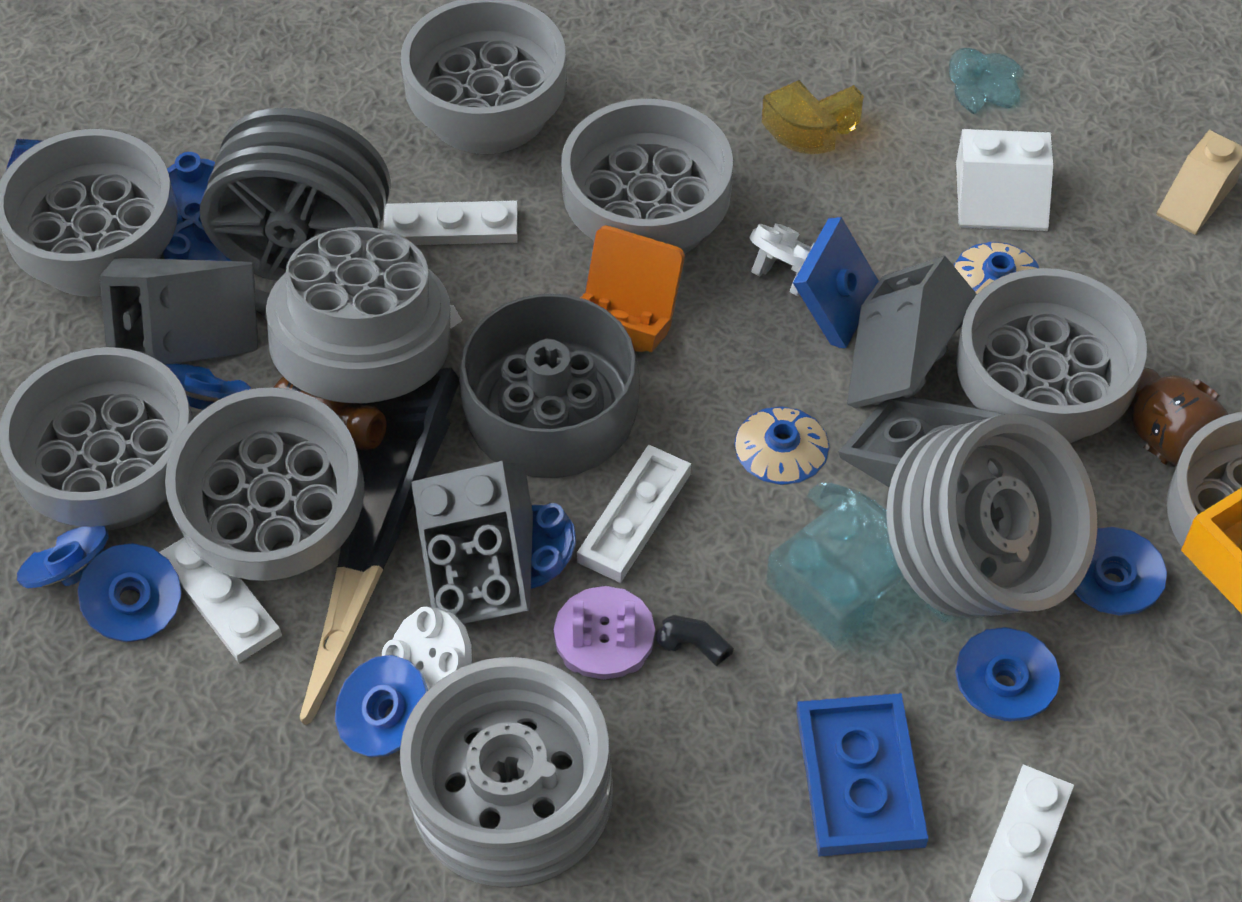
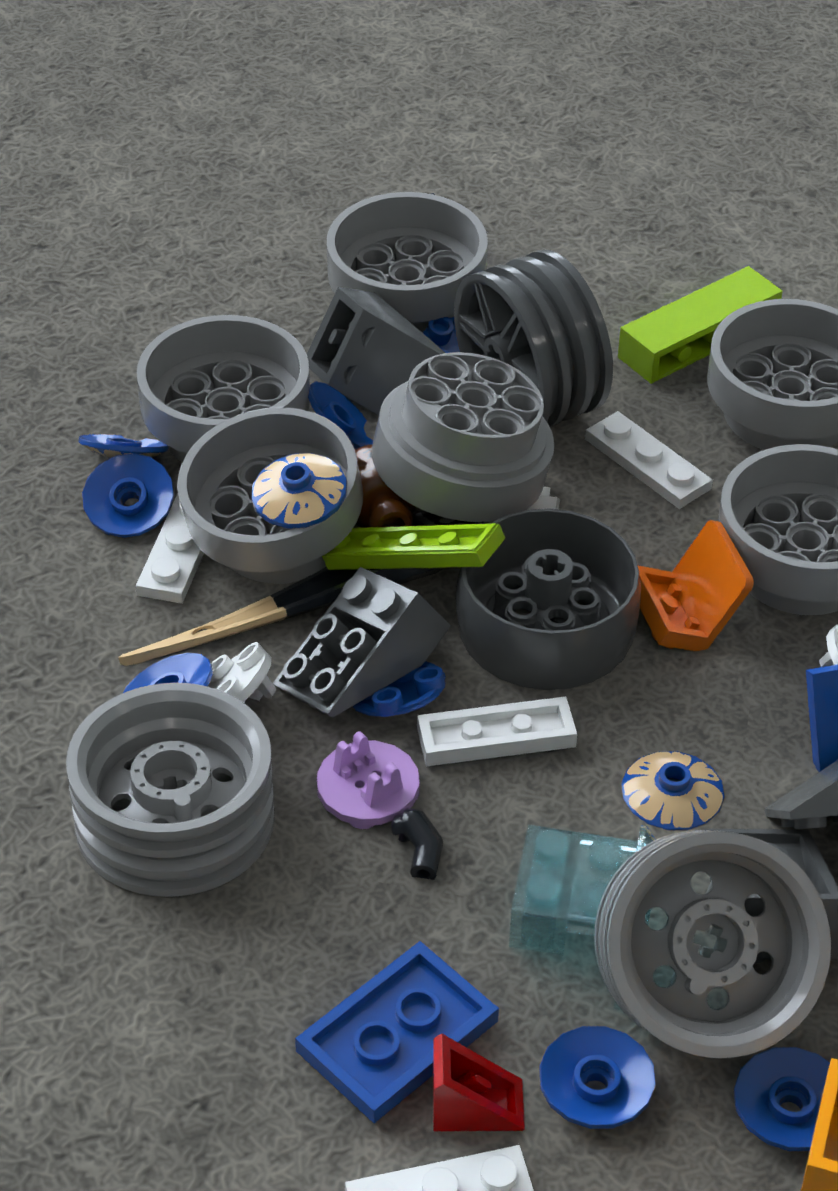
camera: 50 degrees right, 10 degrees down
(314, 481) = (299, 490): none -> dish
(353, 71) = (685, 328): none -> lime brick
(434, 427) = (416, 547): none -> lime tile
(956, 765) = (473, 1091): none -> red slope

